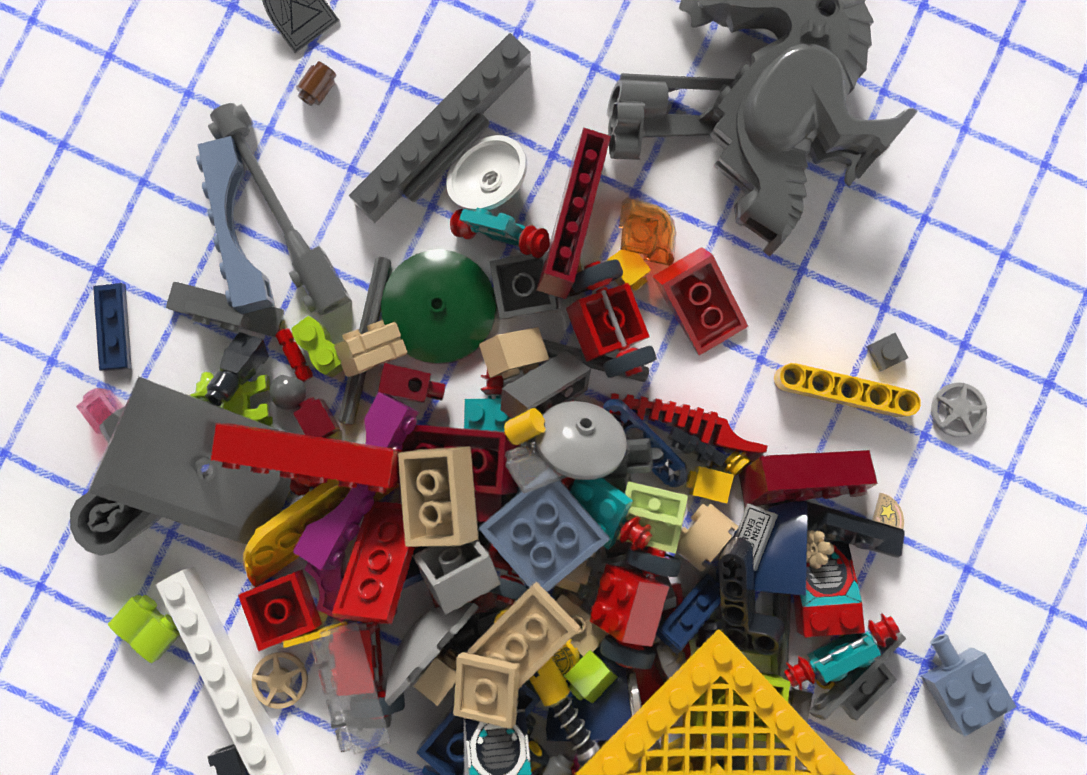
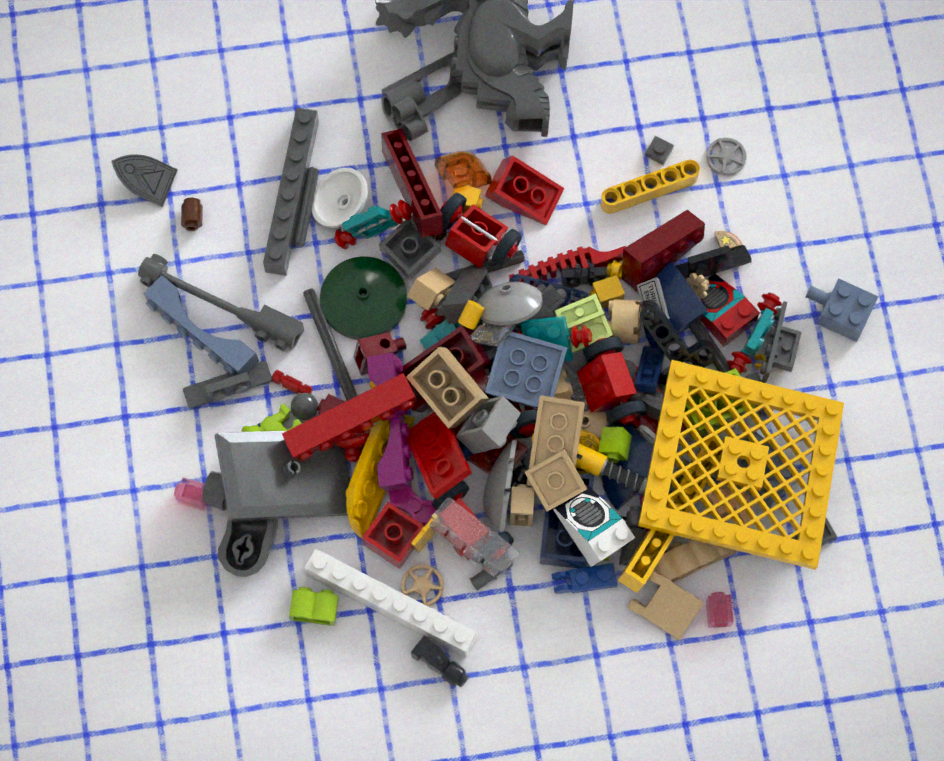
camera: 35 degrees left, 15 degrees down
(112, 327) = (160, 443): dark blue tile -> none
(236, 367) = (264, 406): black piece -> none
(317, 341) = (301, 365): lime brick -> none
(370, 349) = (340, 342): tan brick -> none

